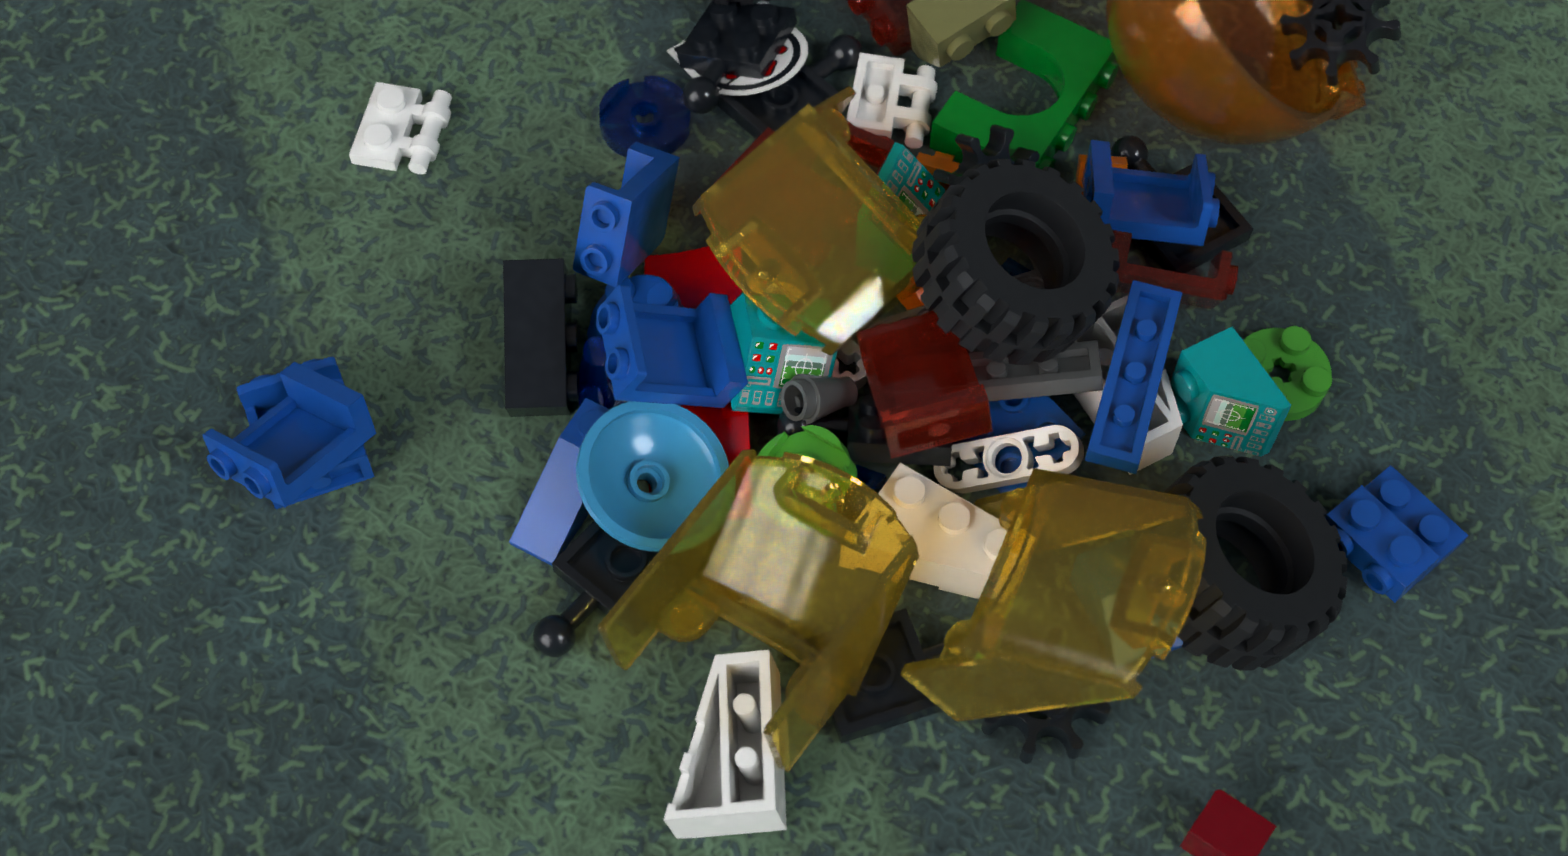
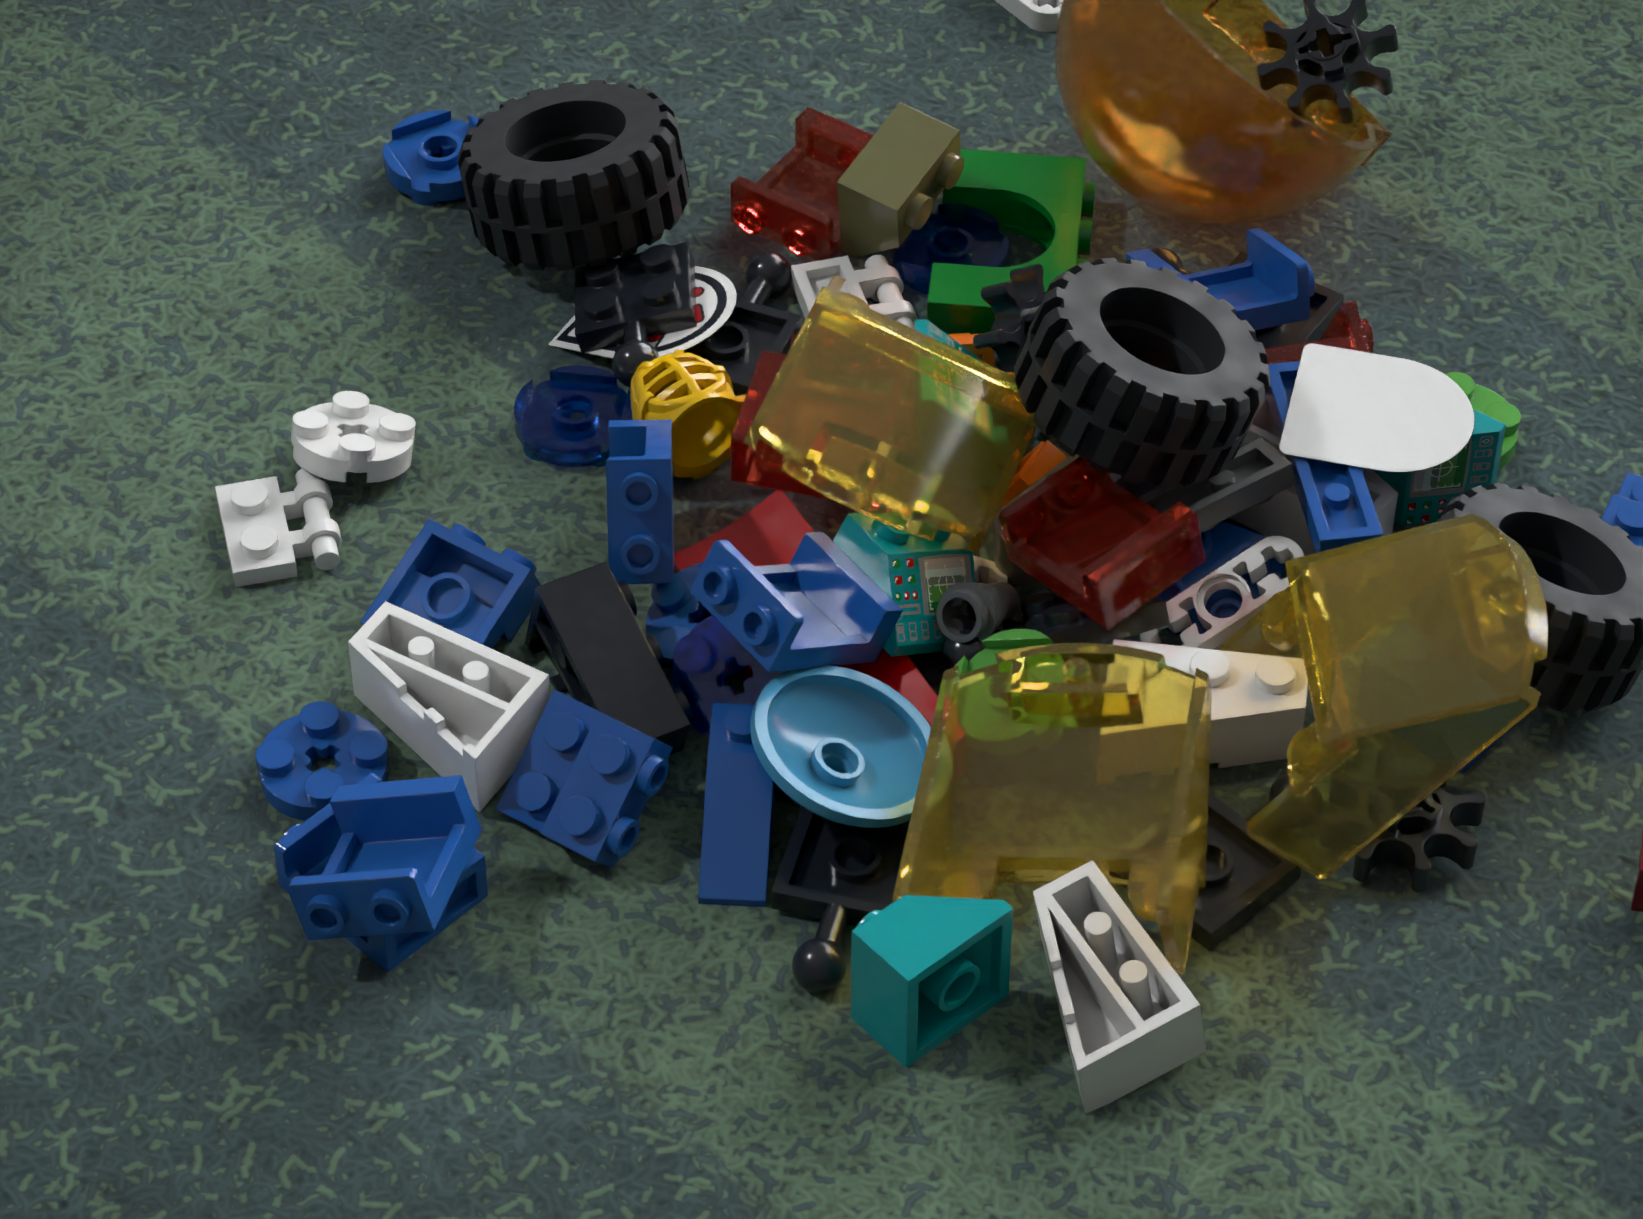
camera: 25 degrees left, 15 degrees down
(318, 303) = (318, 733): none -> blue plate
(423, 319) = (448, 697): none -> white wedge
(460, 83) = (352, 438): none -> white plate
(473, 233) = (461, 584): none -> blue plate
(473, 421) = (585, 779): none -> blue plate
(610, 683) = (928, 969): none -> teal slope
(707, 141) = (698, 402): none -> yellow piece
(999, 62) = (956, 227): none -> plate
(1194, 354) = (1374, 411): none -> white sticker

